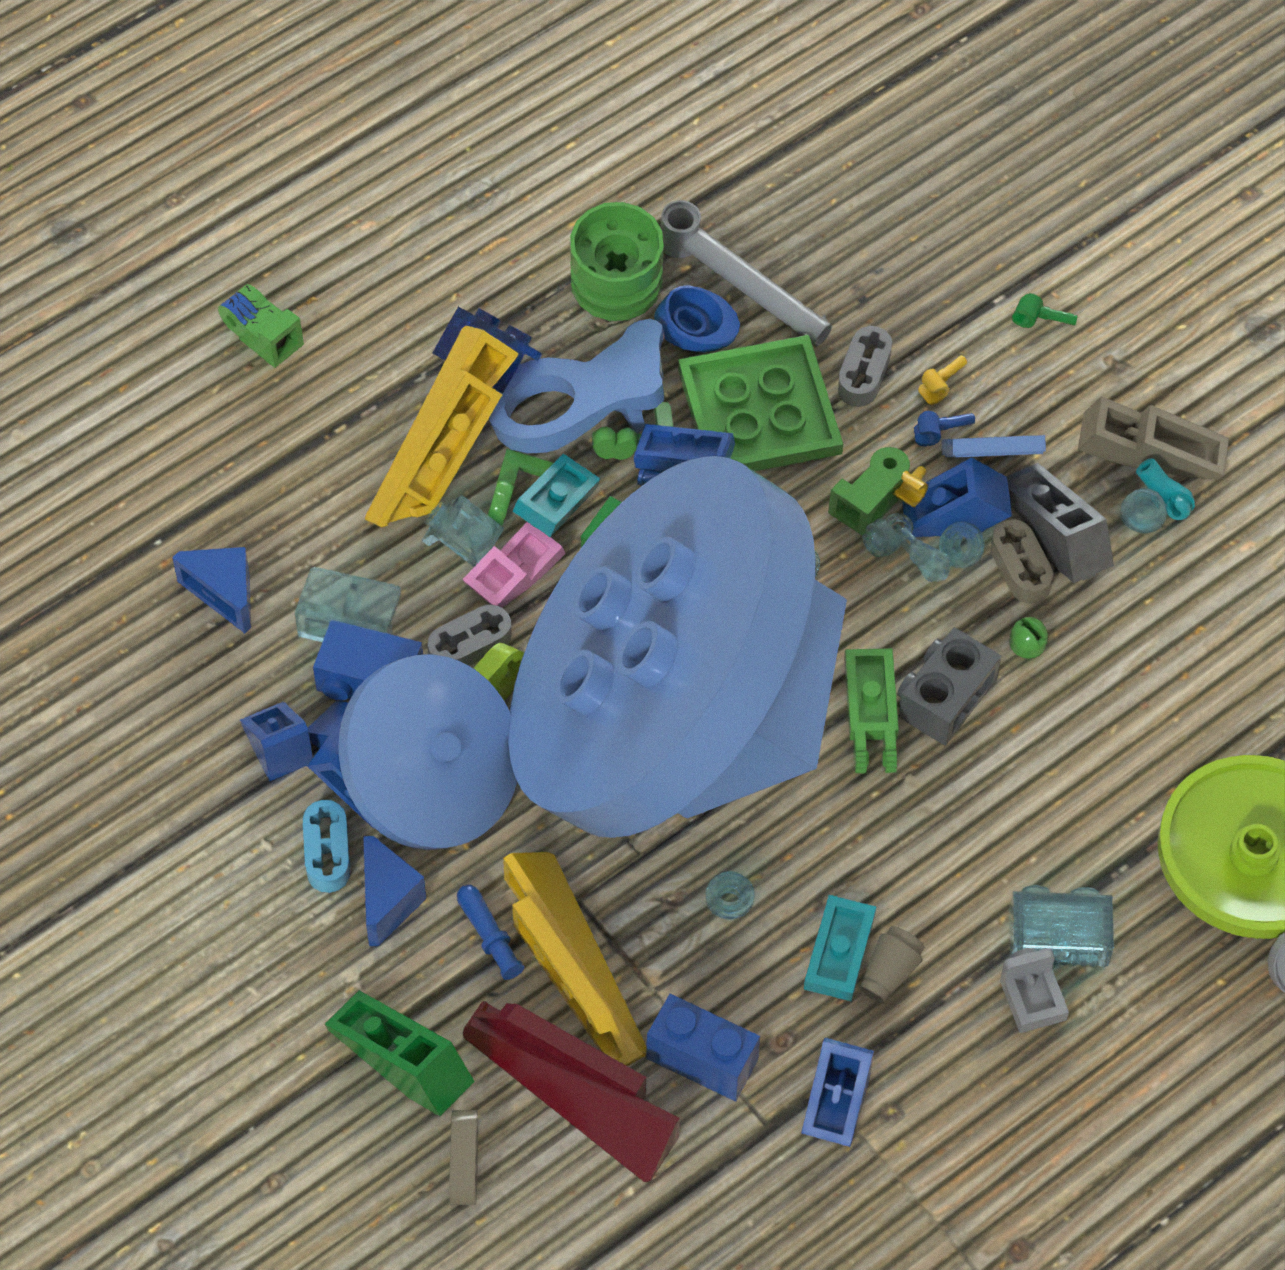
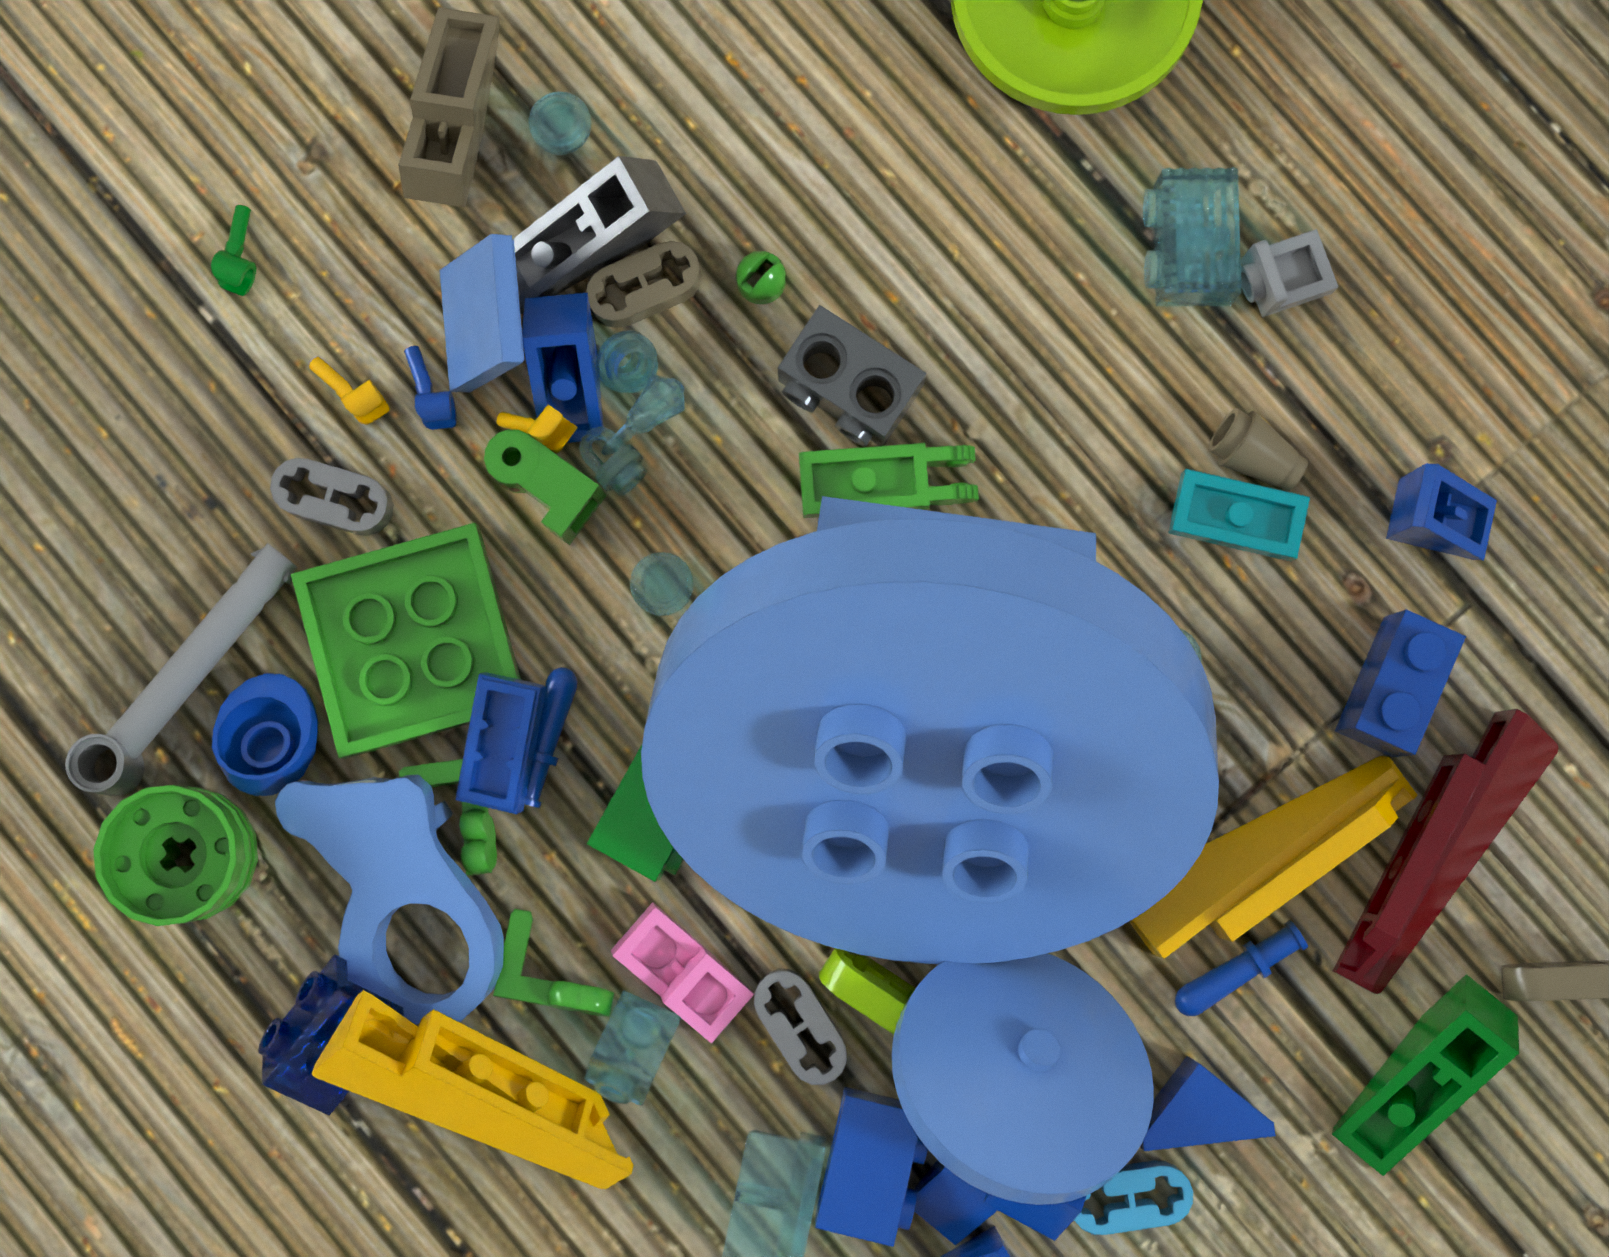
camera: 90 degrees left, 25 degrees up
(556, 495) = (576, 920): teal plate -> none
(1177, 498) = (534, 81): teal arm -> none

